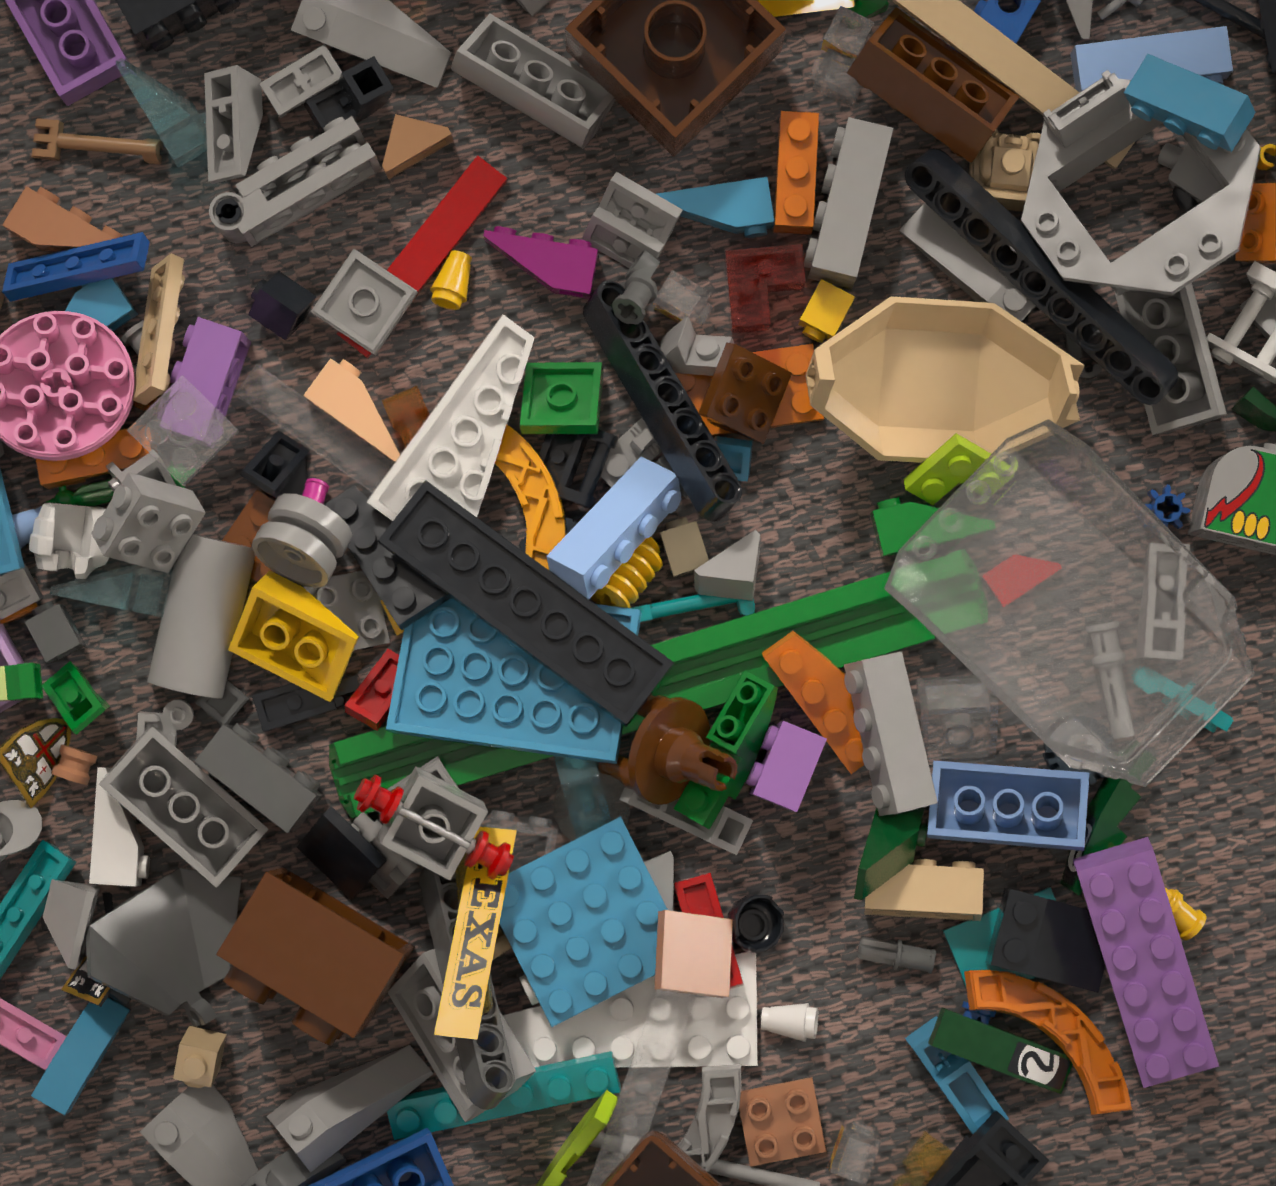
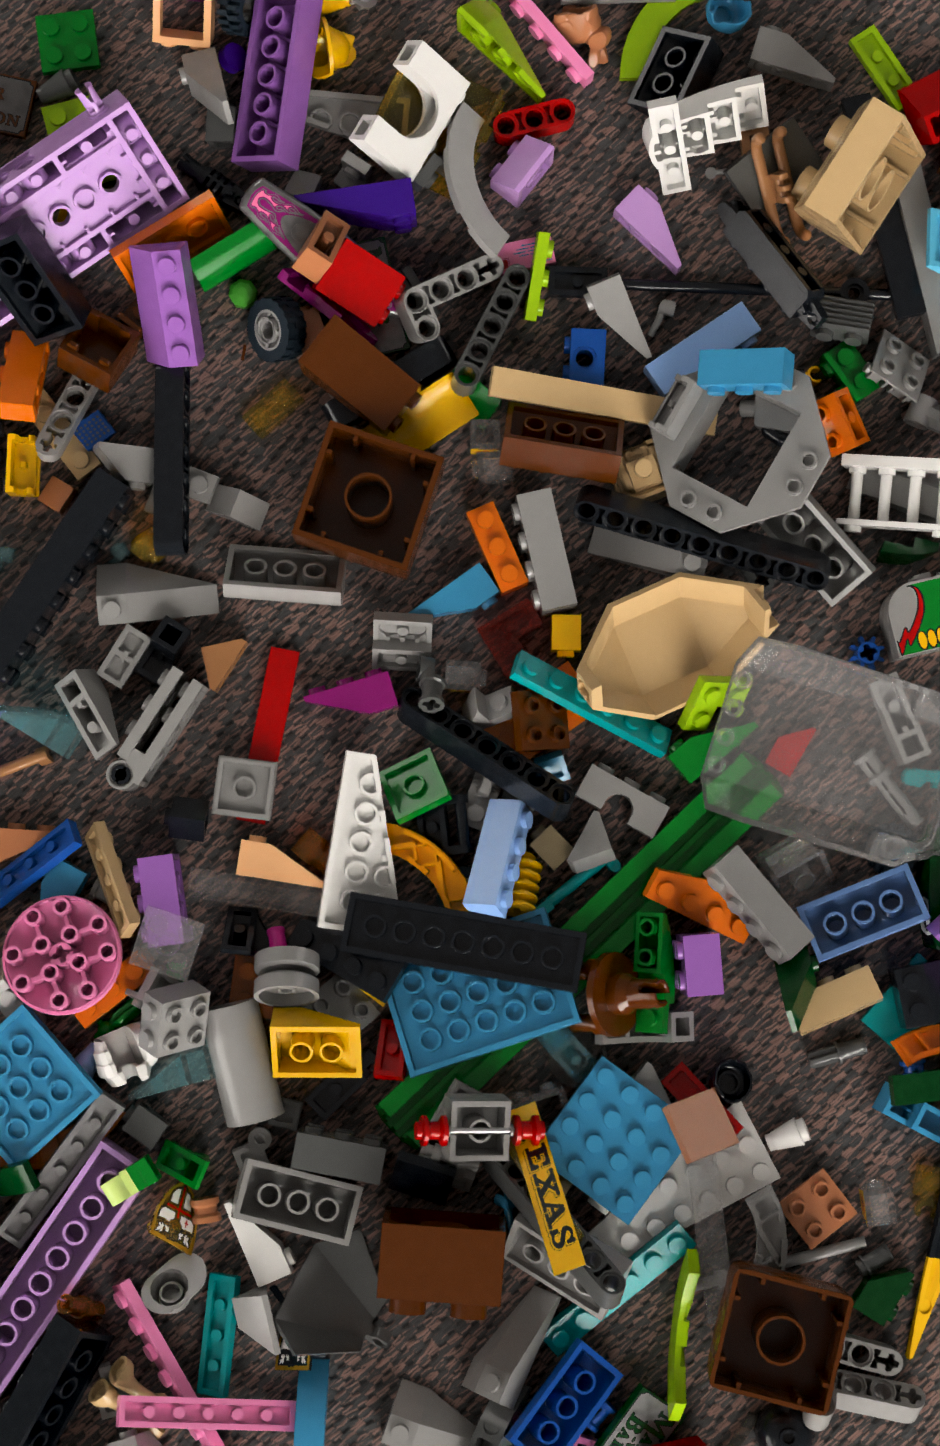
camera: 30 degrees left, 0 degrees up
(199, 1057) = (395, 1368): tan brick -> none
(424, 936) = (505, 1203): none -> dark azure hand
(452, 282) = (298, 743): yellow cone -> none
(779, 505) = (646, 810): none -> light grey arch
(788, 369) = (564, 691): none -> teal plate

